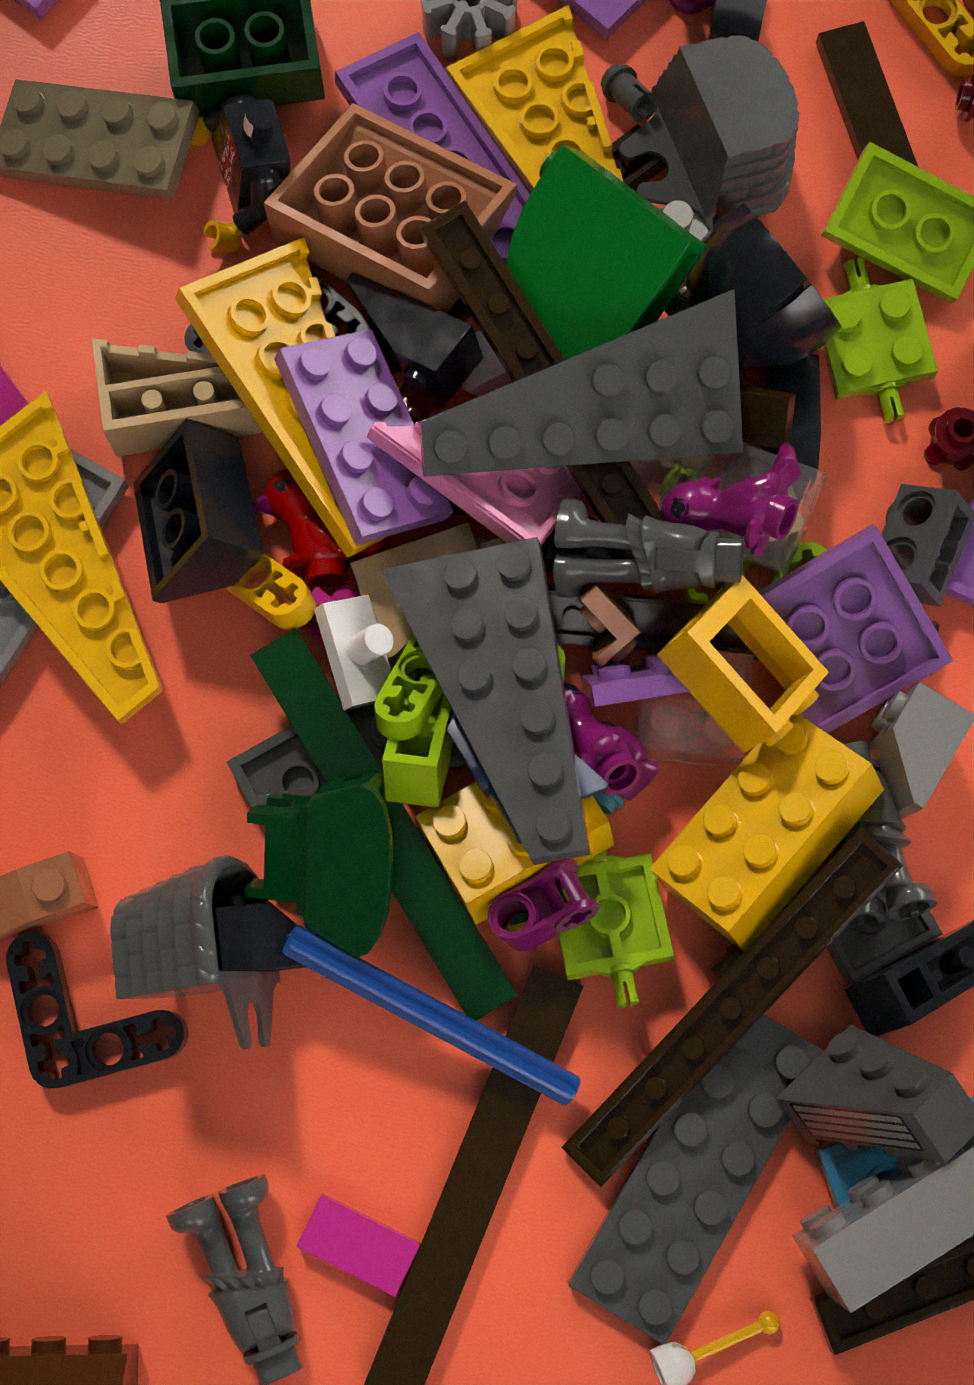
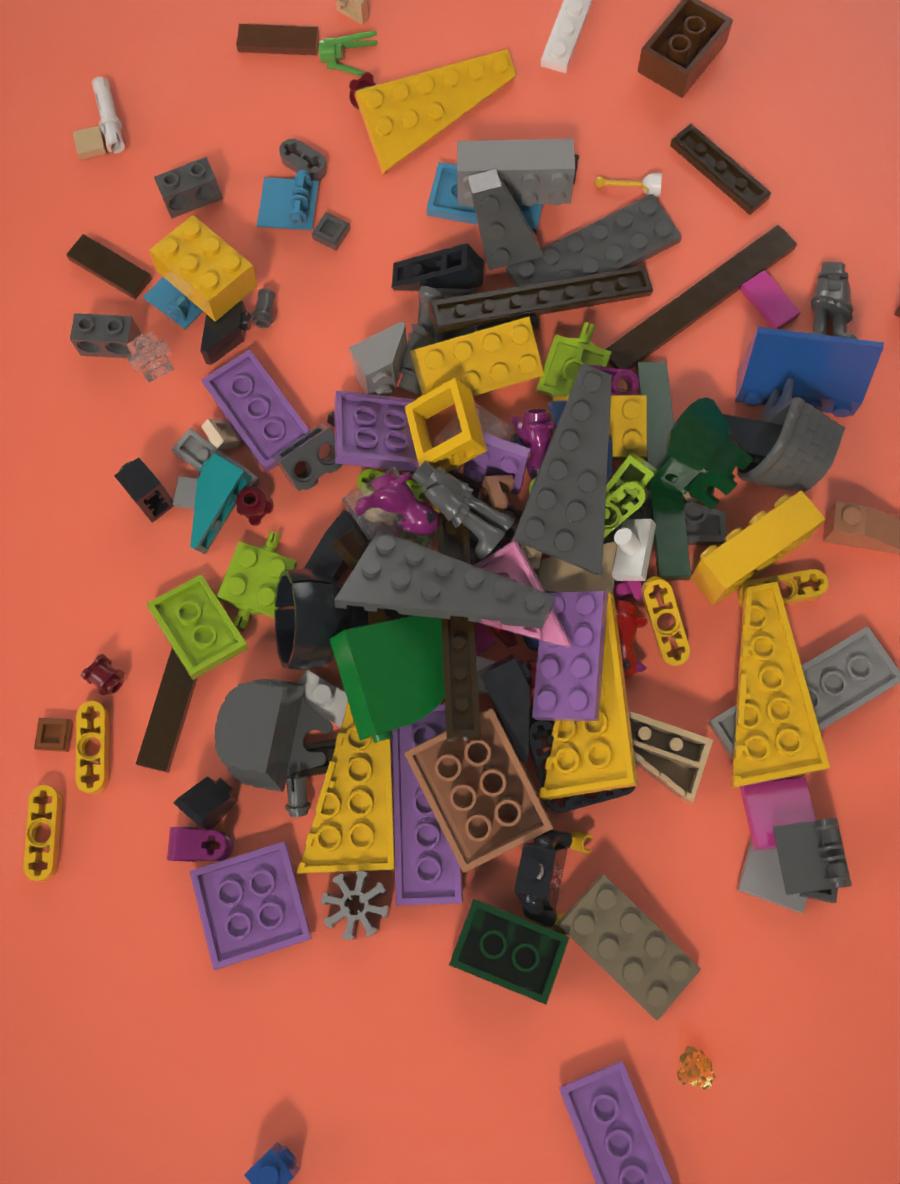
camera: 145 degrees left, 5 degrees down
(77, 1044) = (868, 454): black beam -> none
(87, 735) = (802, 578): none -> yellow beam
(174, 760) = (756, 547): none -> yellow brick
(196, 514) = (681, 671): black slope -> none
(226, 1098) = (825, 369): none -> blue slope
(431, 1015) = (687, 365): blue axle -> none

